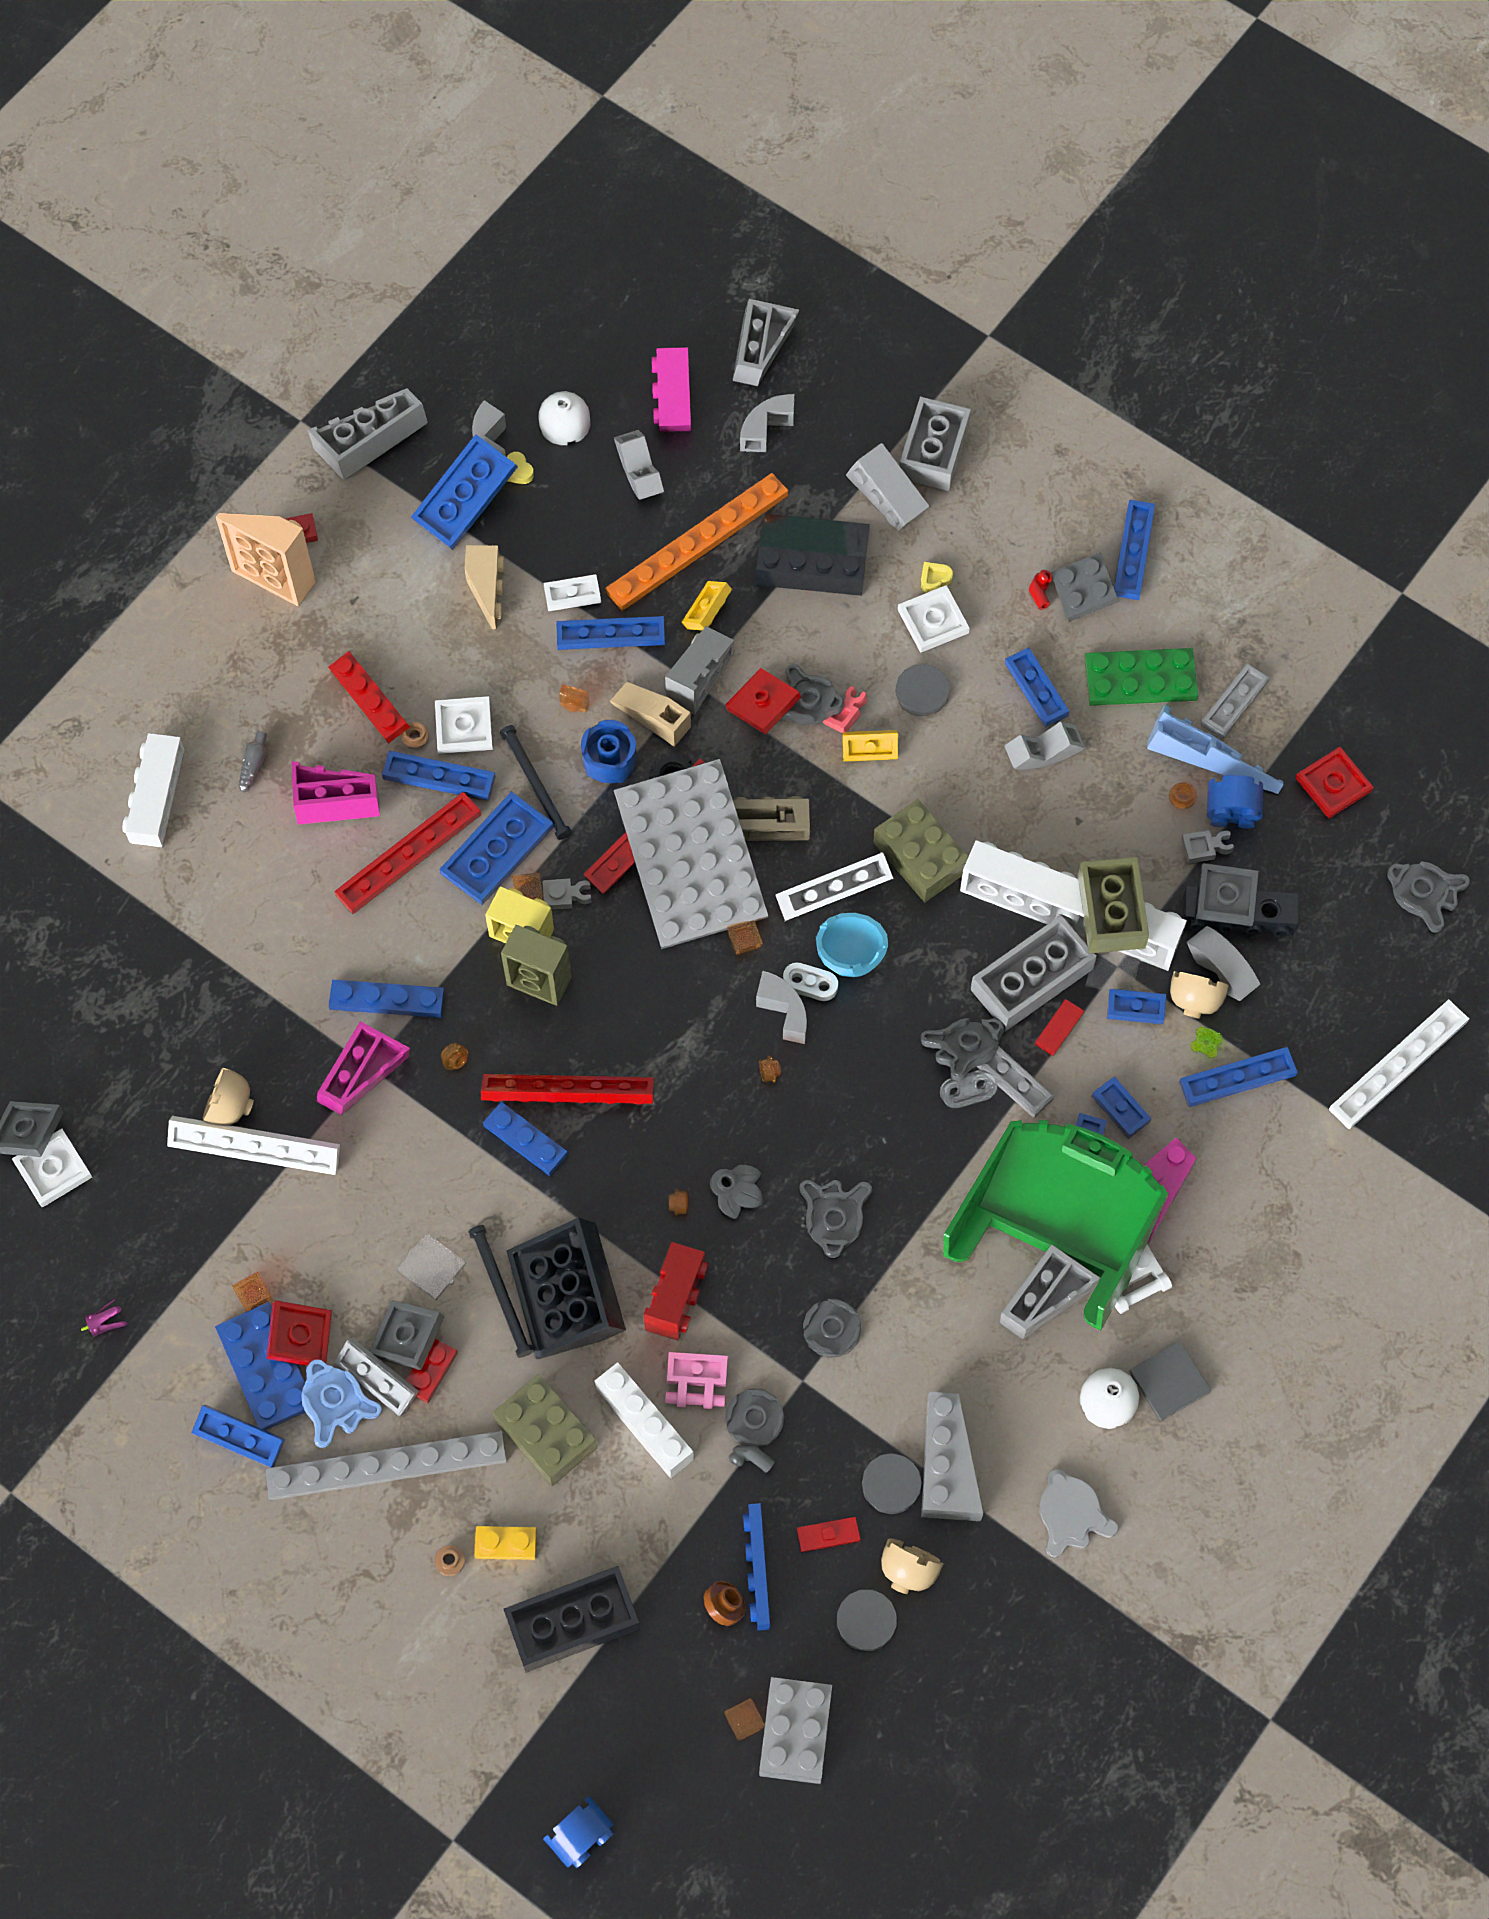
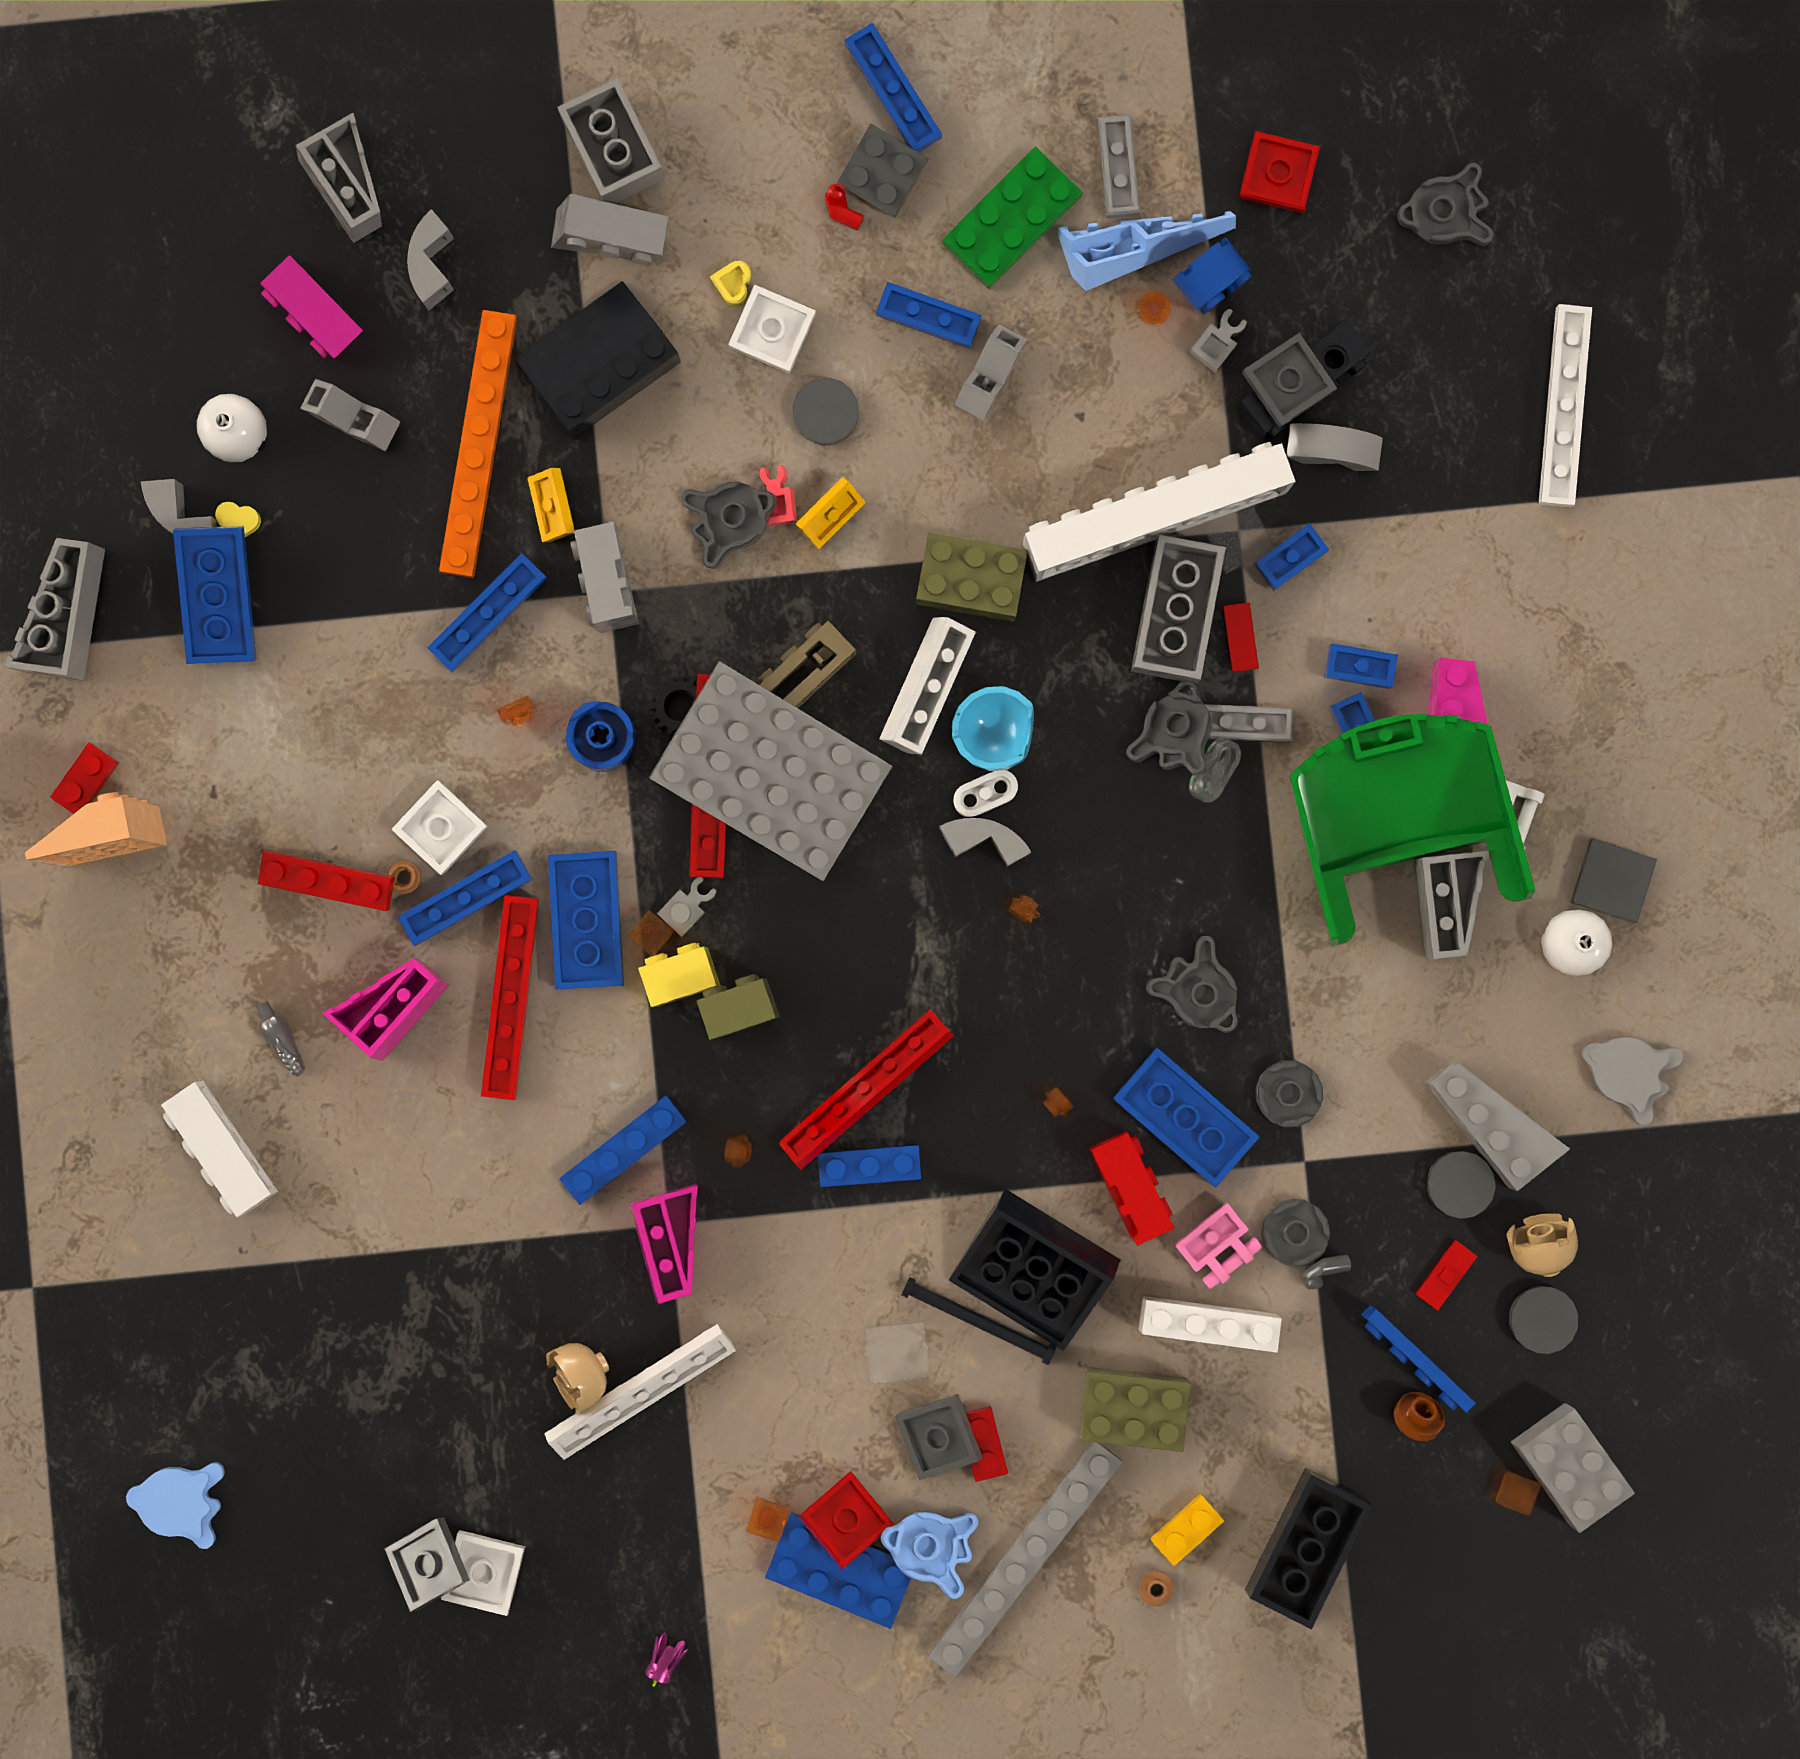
camera: 45 degrees left, 20 degrees up
(238, 1436) = (878, 1651): plate -> none
(376, 1377) = (945, 1494): light grey tile -> none
(482, 576) = (311, 661): tan slope -> none
(562, 830) = (558, 823): black bar -> none
(572, 592) = (412, 604): white plate -> none
(579, 1833) = (1478, 1714): blue brick -> none
(654, 712) = (600, 659): tan slope -> none
(741, 1191) = (1101, 1043): dark grey plate -> none
(744, 936) = (888, 803): clear orange plate -> none
(751, 1282) = (1186, 1117): none -> blue plate
(763, 701) = (693, 556): red plate -> none
(1113, 905) = (1212, 492): olive brick -> none
(1197, 994) = (1338, 498): tan cylinder -> none
(1210, 1035) = (1385, 527): clear neon green plate -> none
(1238, 1077) = (1437, 545): blue plate -> none

